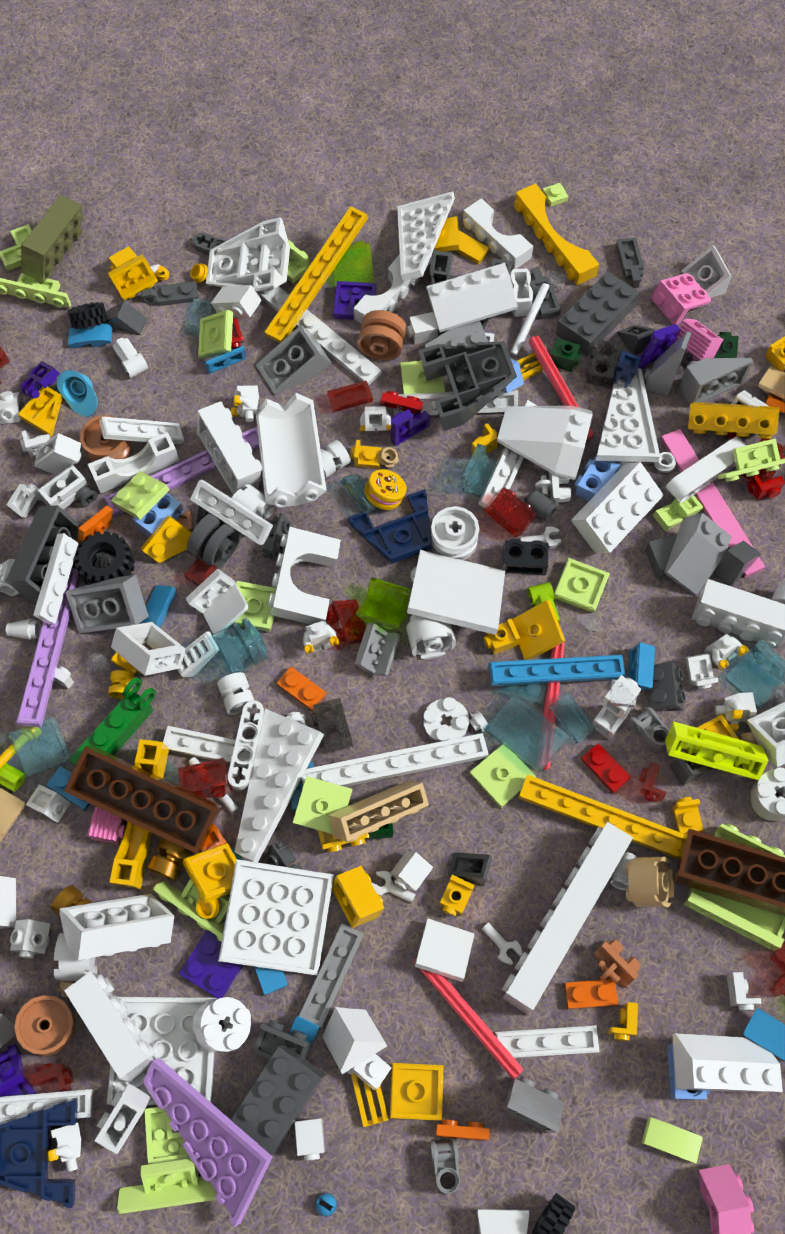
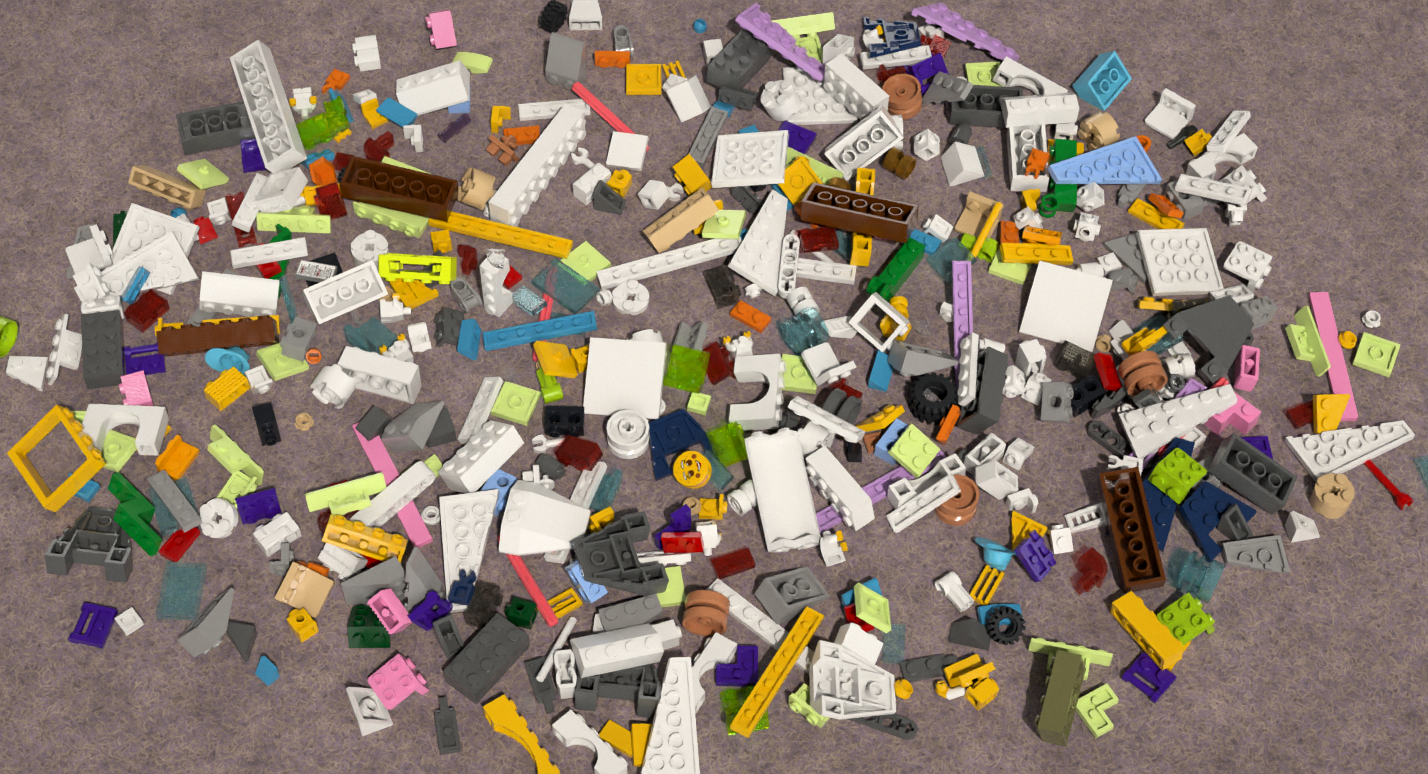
camera: 175 degrees right, 10 degrees down
(94, 363) = (993, 572): none -> yellow tile
(343, 514) = (728, 443): none -> clear neon green bracket
(371, 570) = (699, 403): none -> yellowish green plate
(493, 894) = (586, 185): none -> white brick
(620, 577) = (481, 408): none -> white plate
(687, 1009) = (454, 128): none -> clear purple pin

